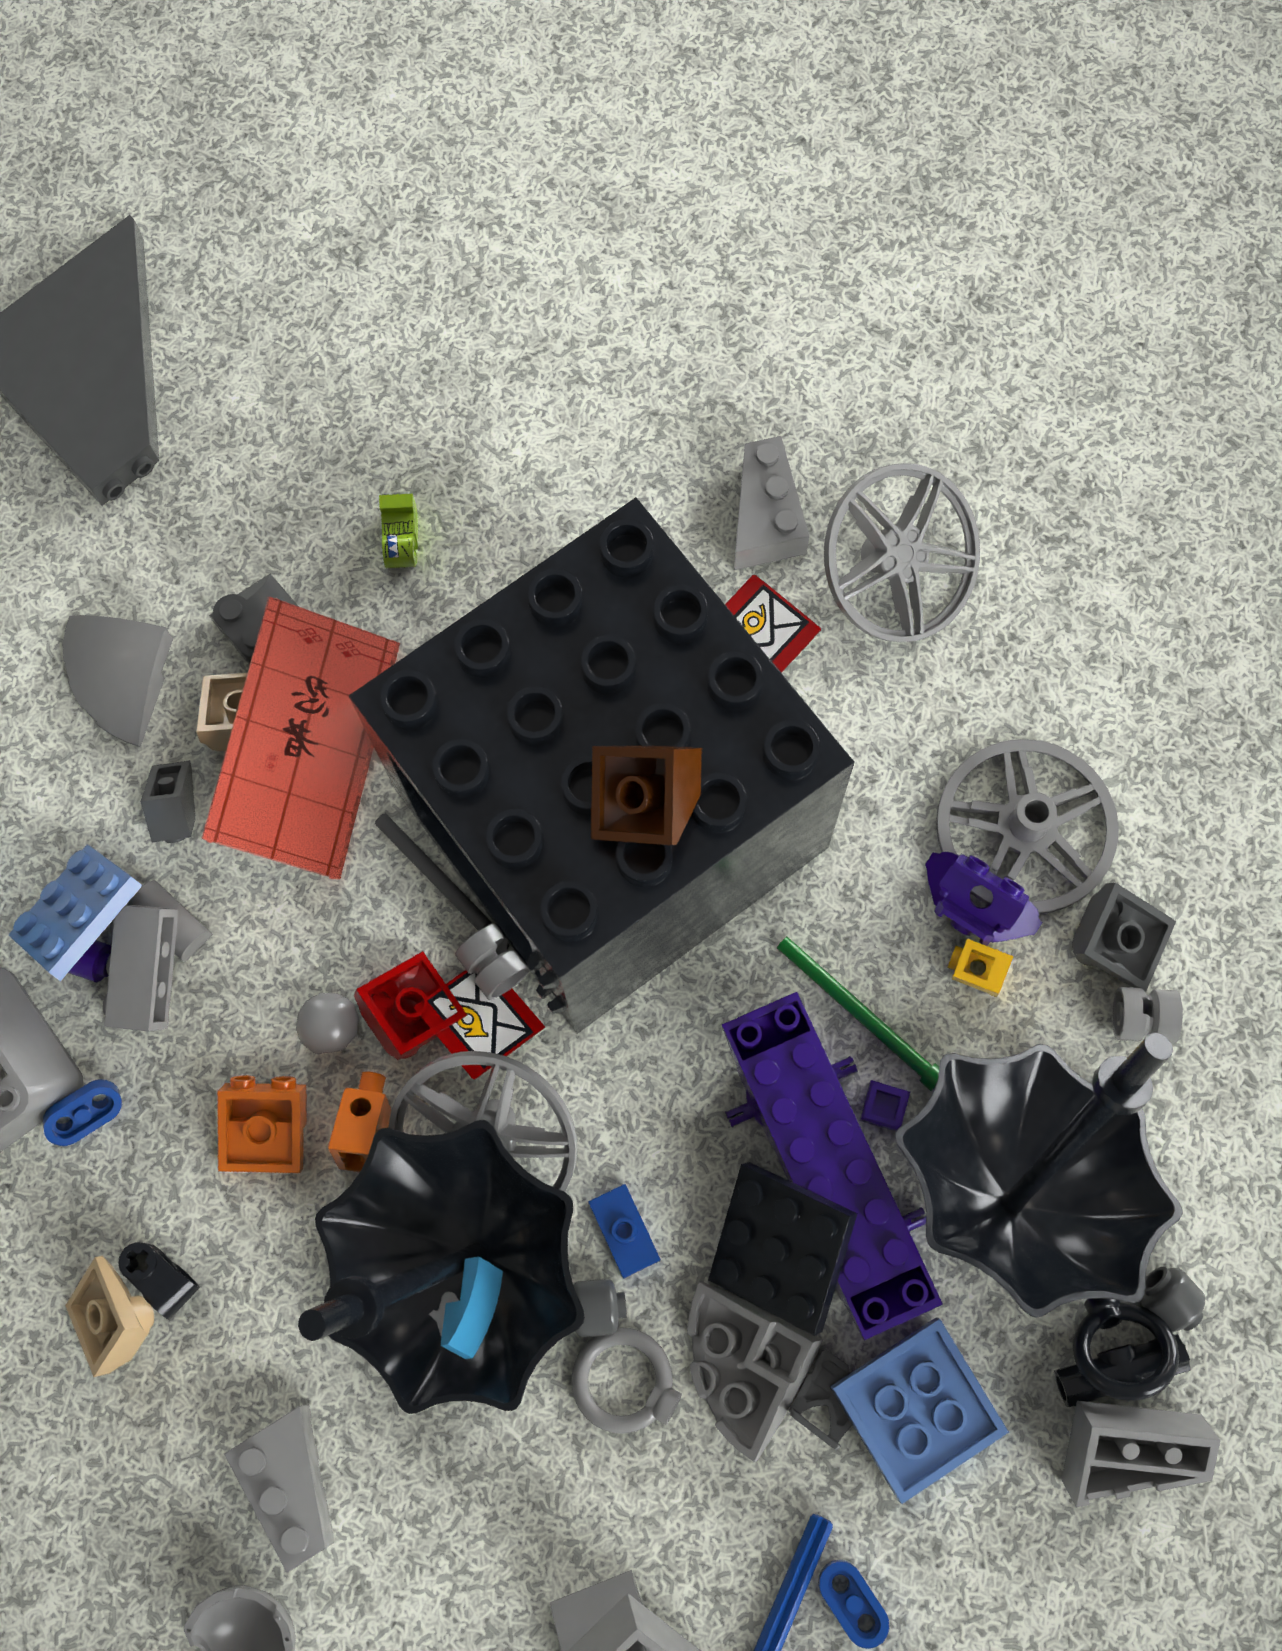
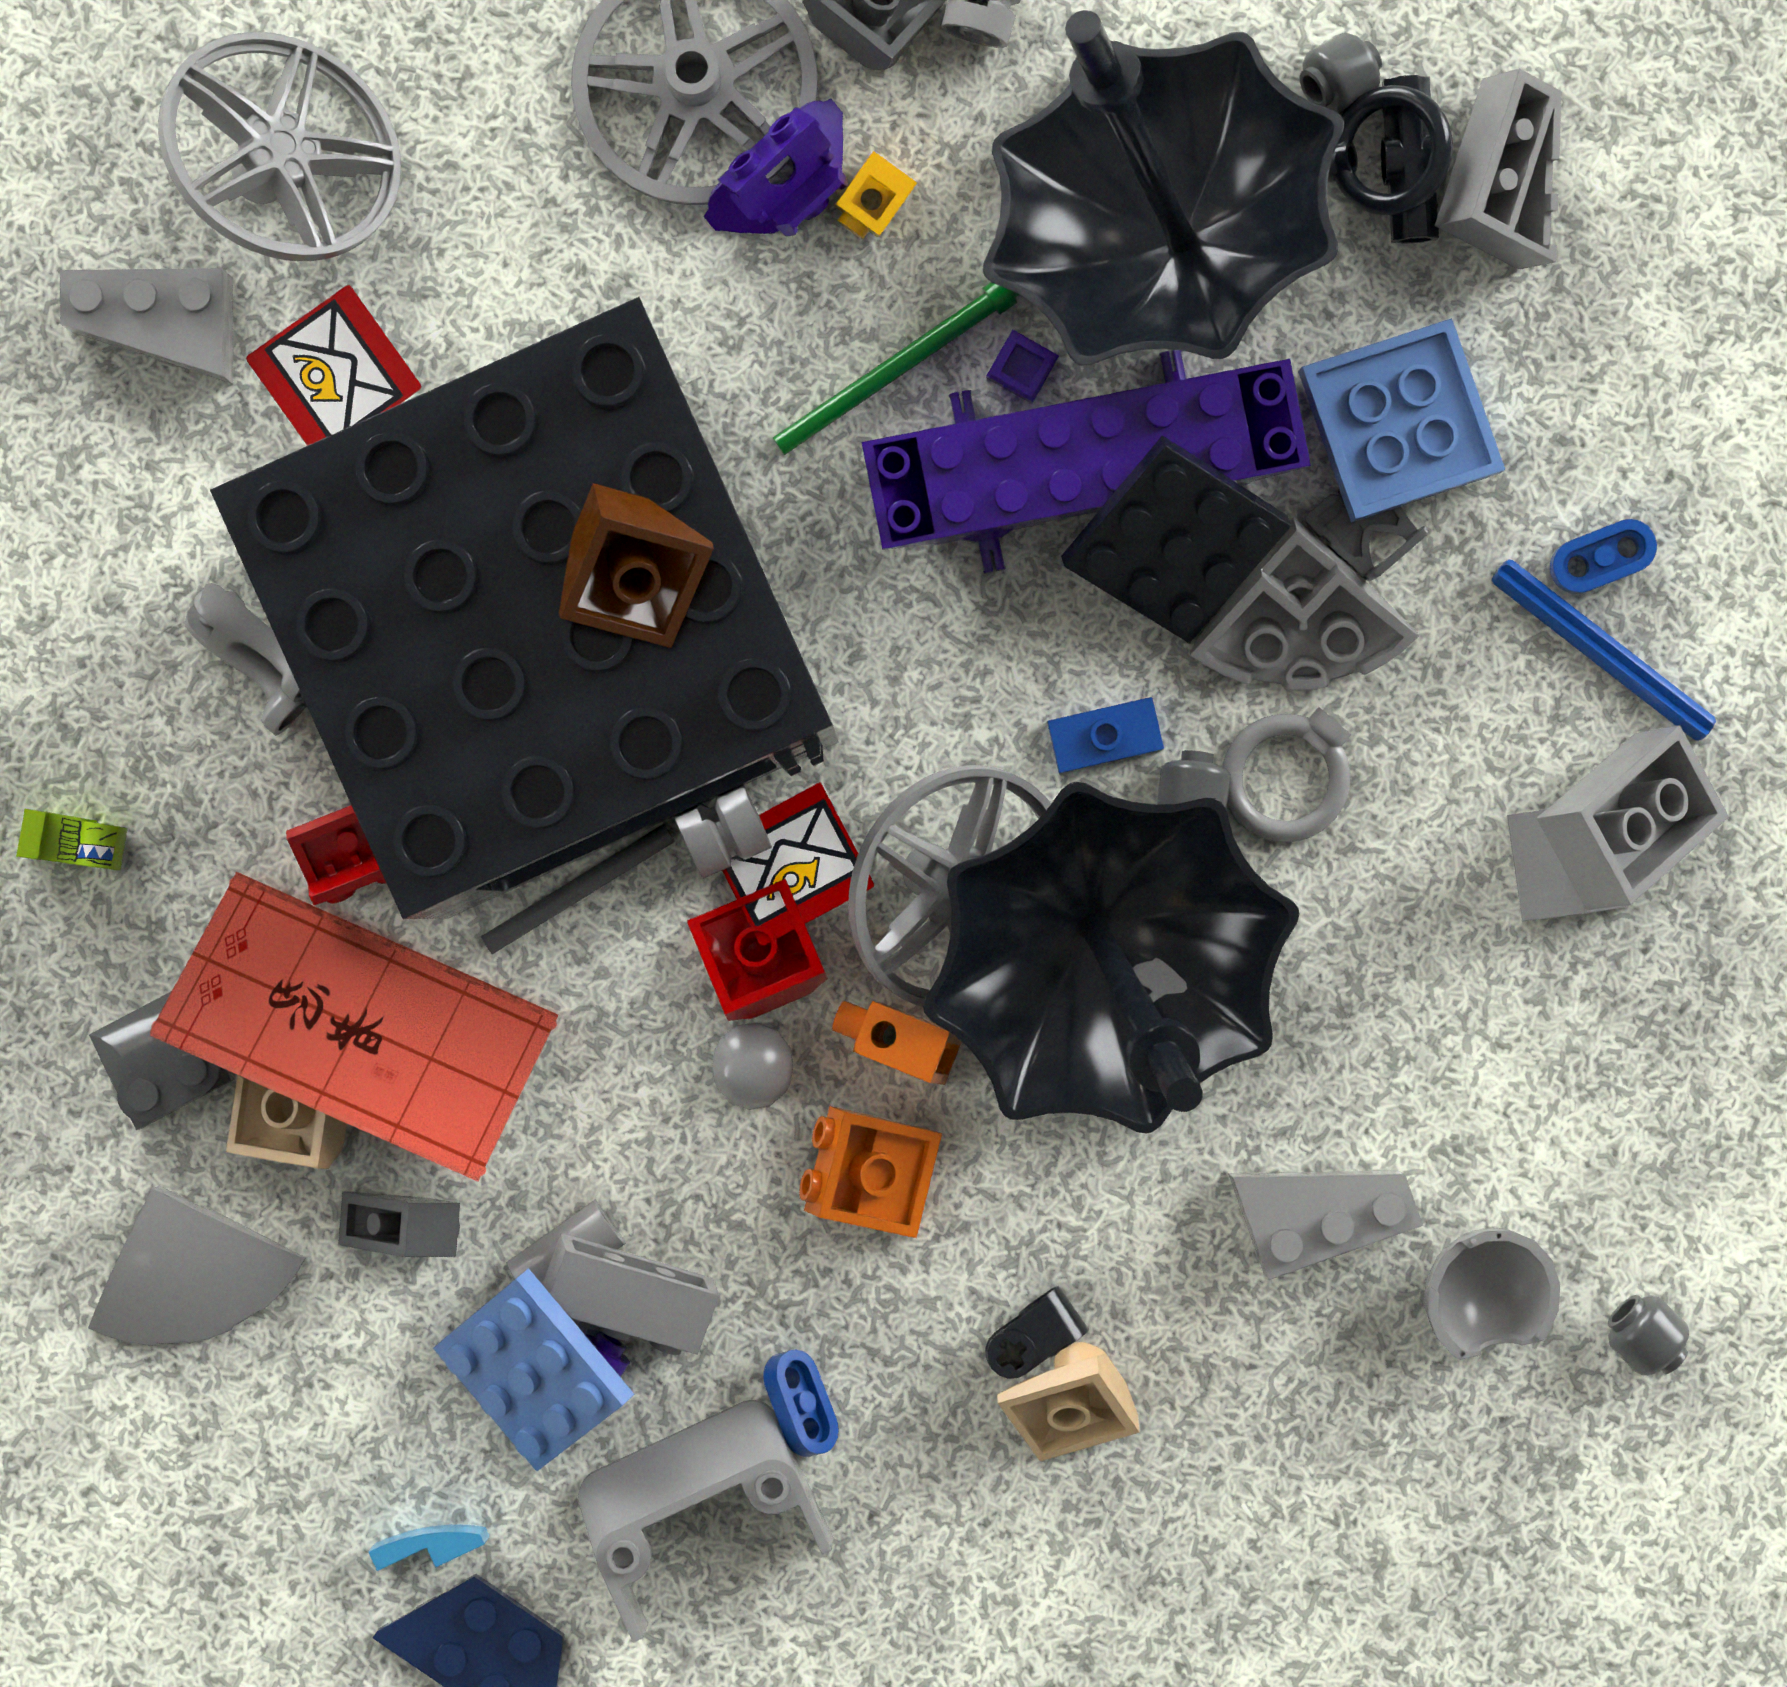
camera: 80 degrees left, 15 degrees up
(470, 1318) = (1179, 944): dark azure slope -> none

